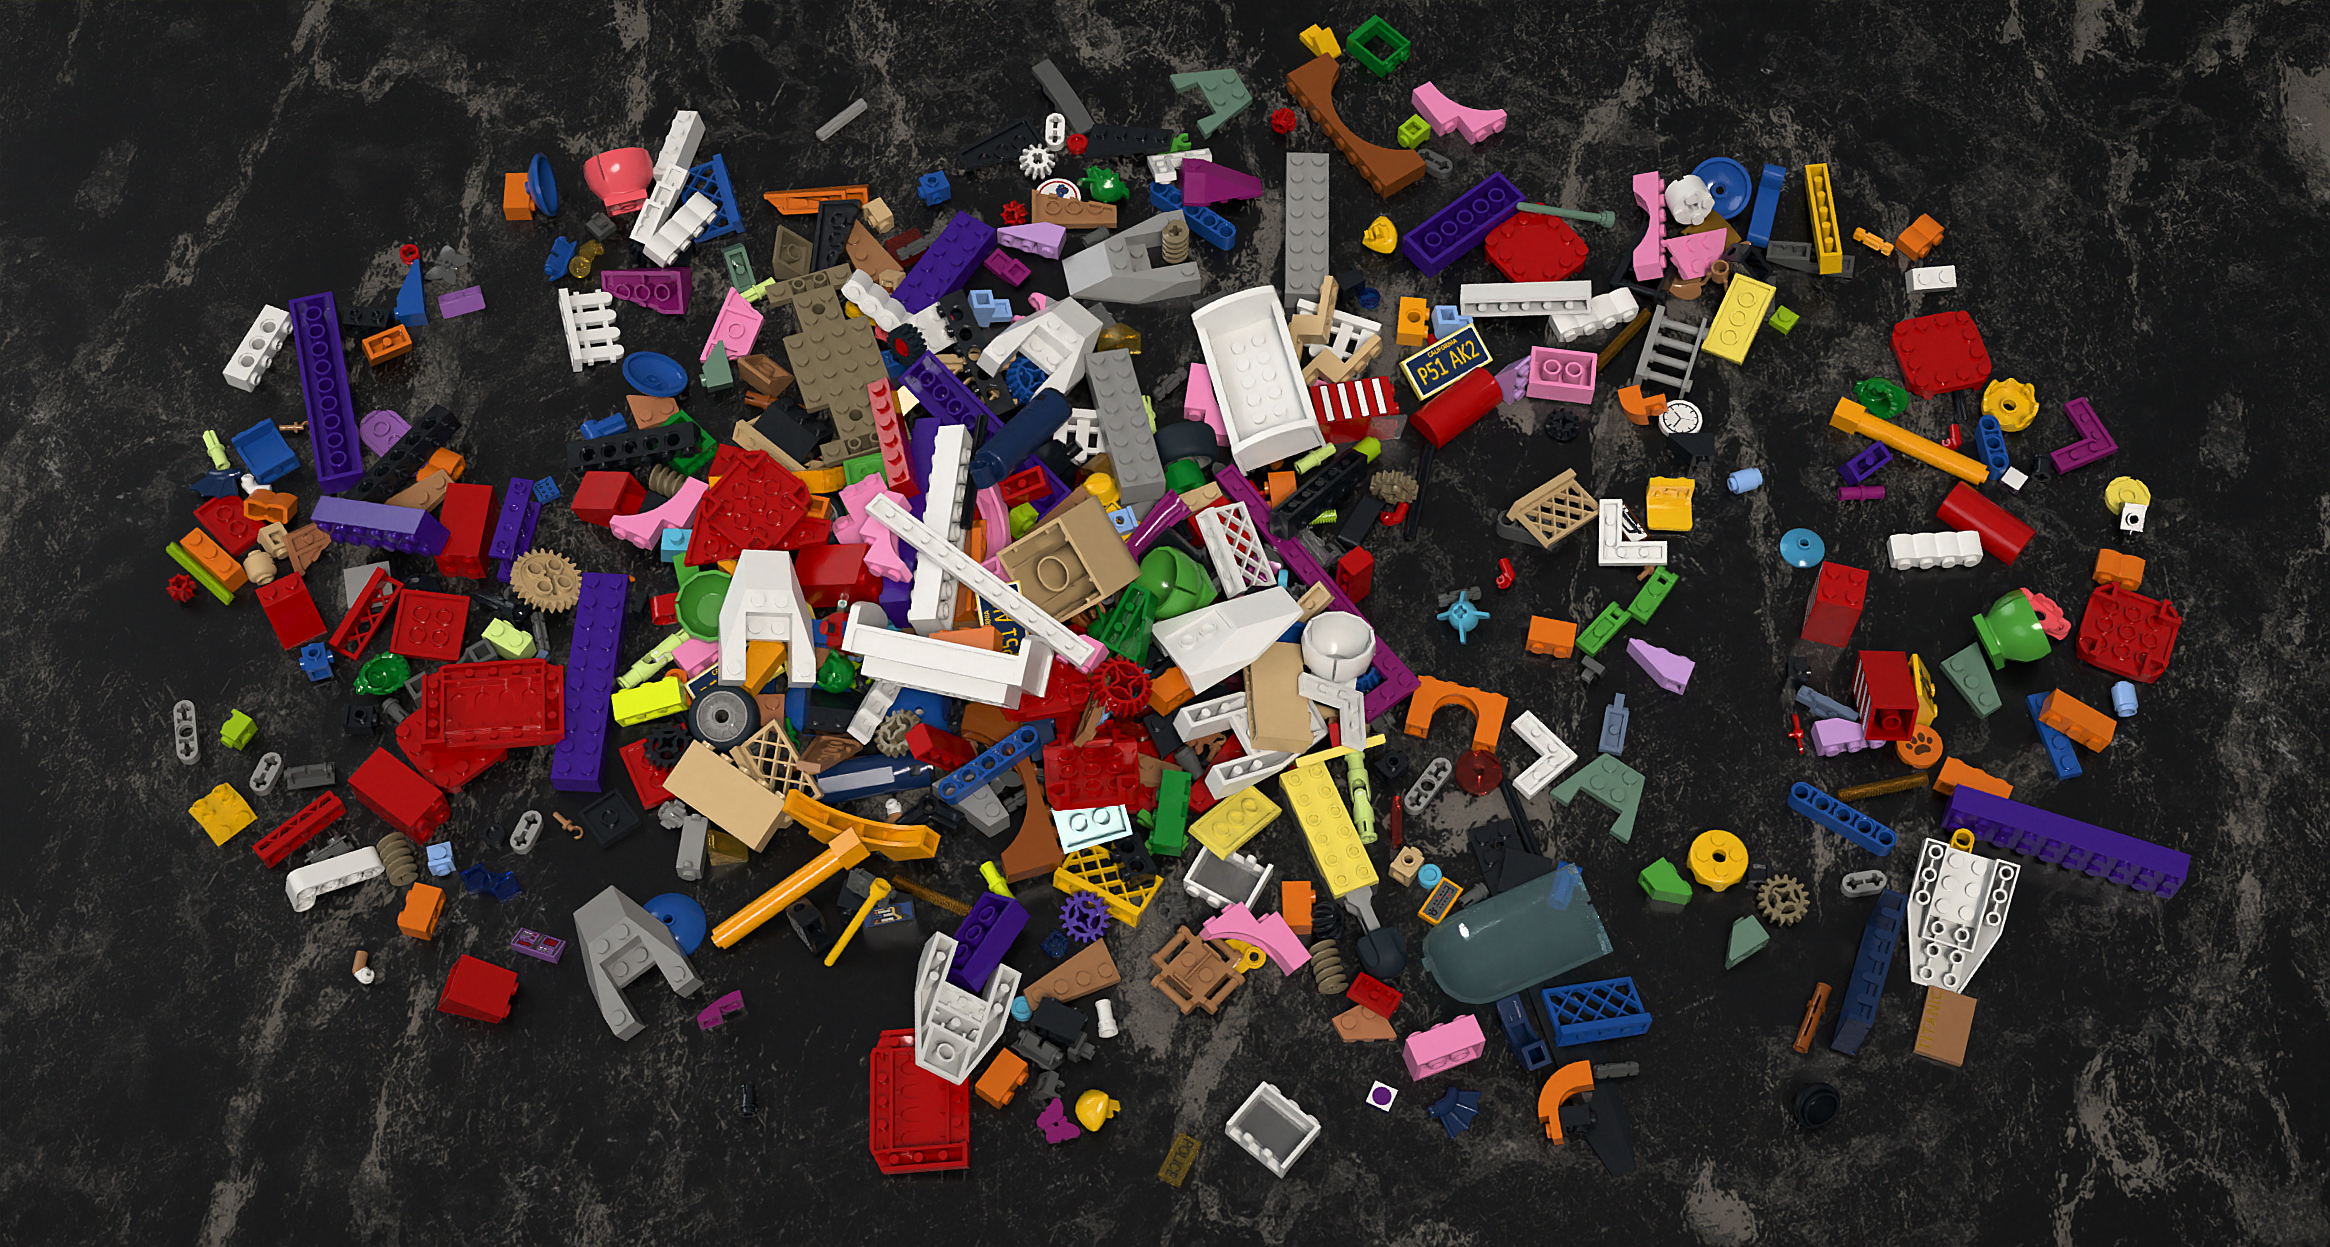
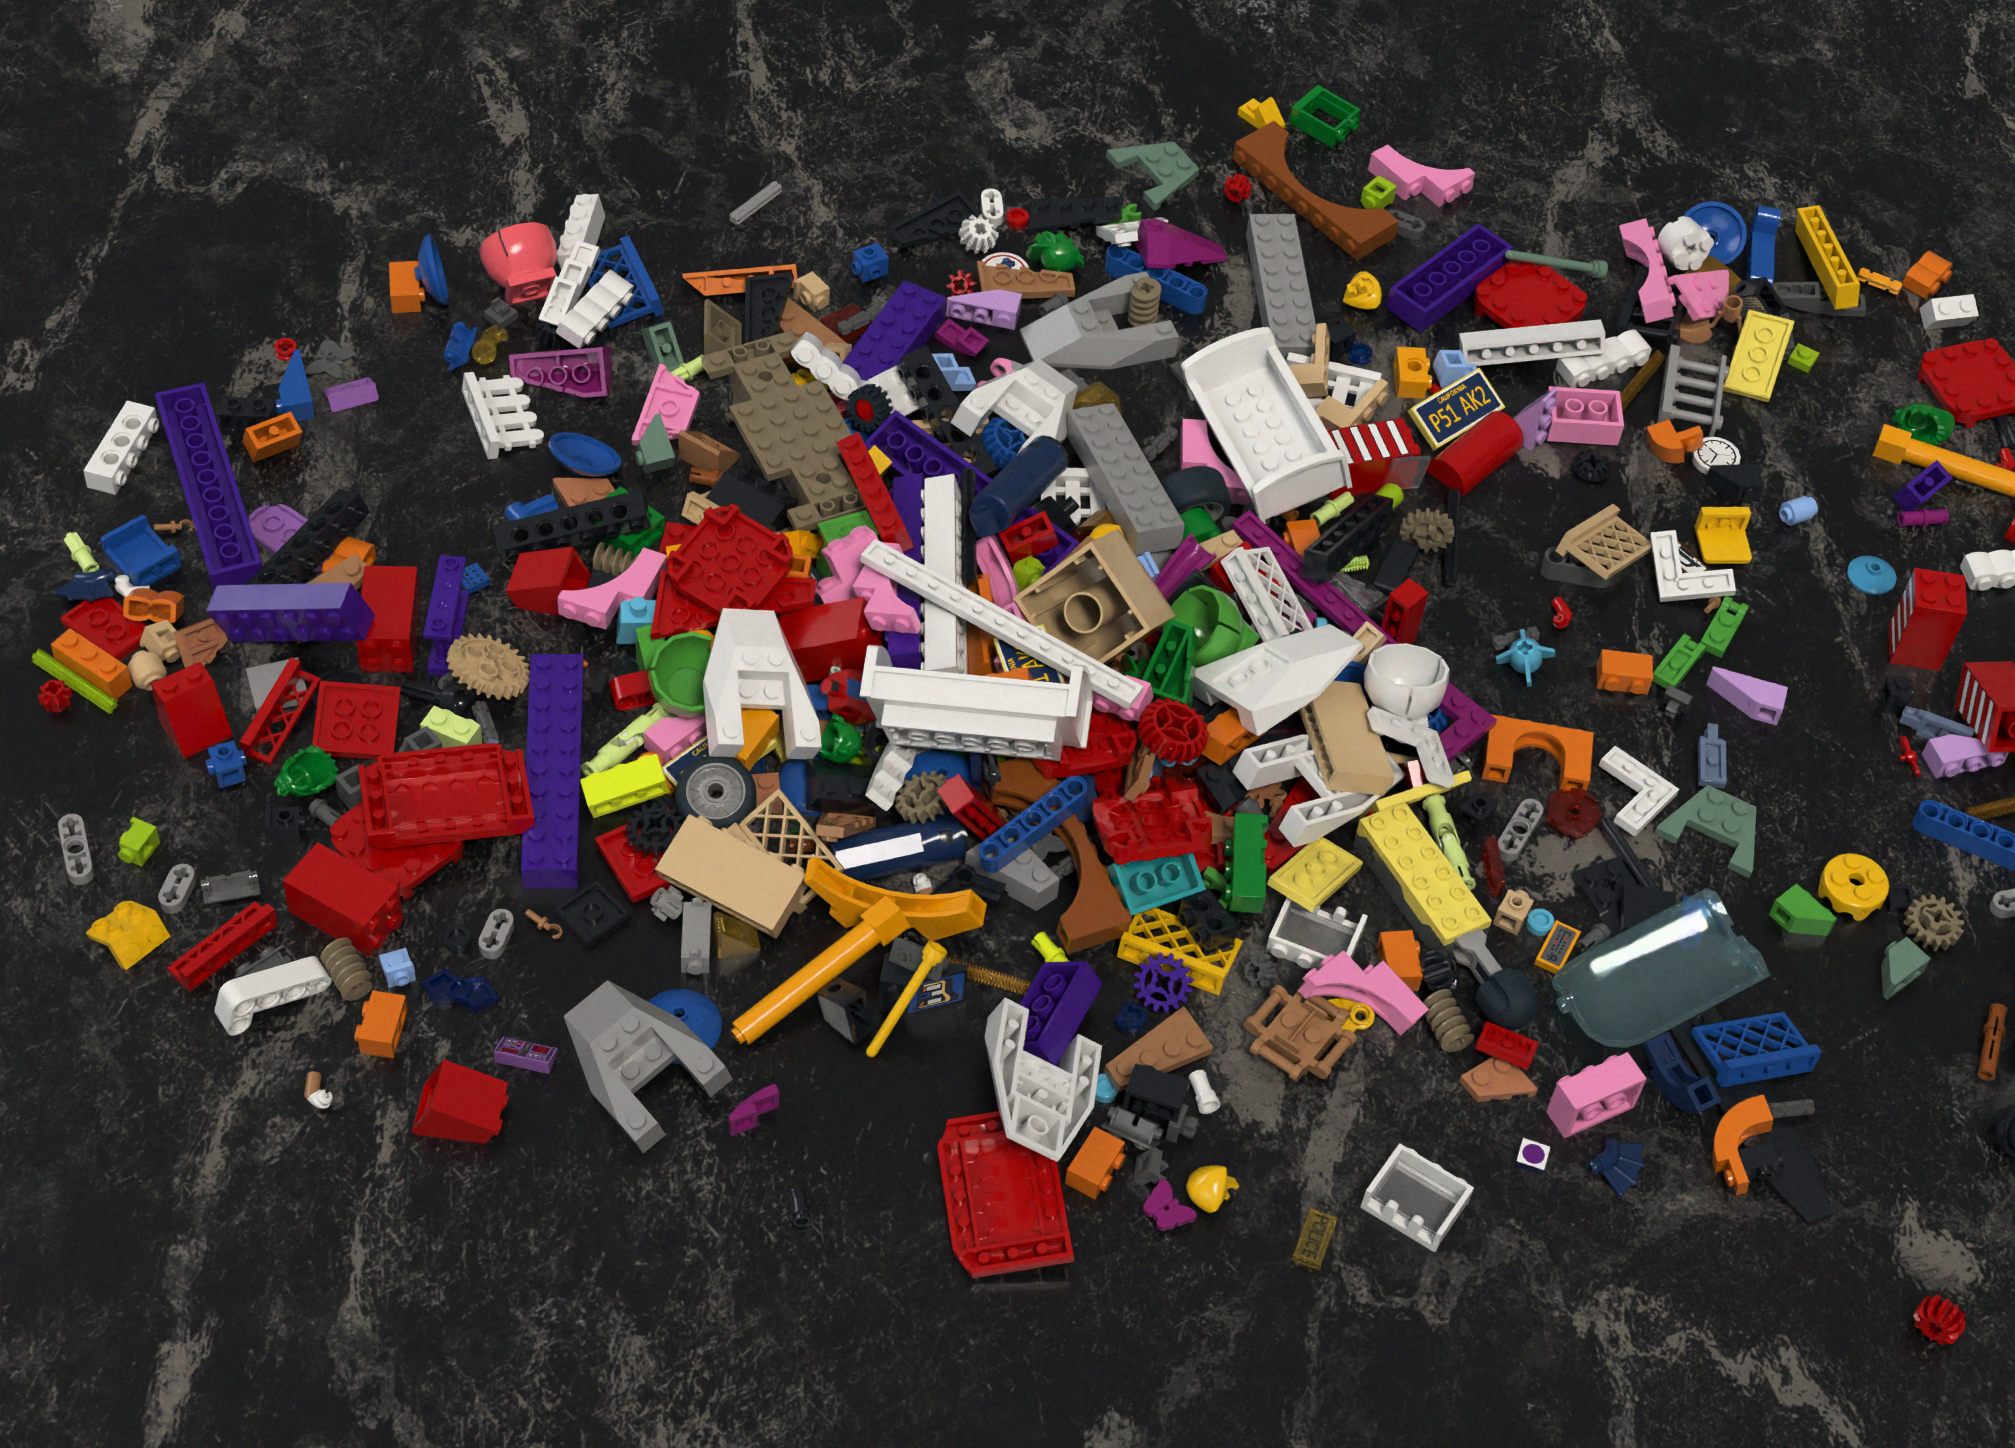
camera: 10 degrees left, 10 degrees down
(1063, 97) = (996, 172): dark grey slope -> none
(1393, 518) = (1429, 564): red arm -> none

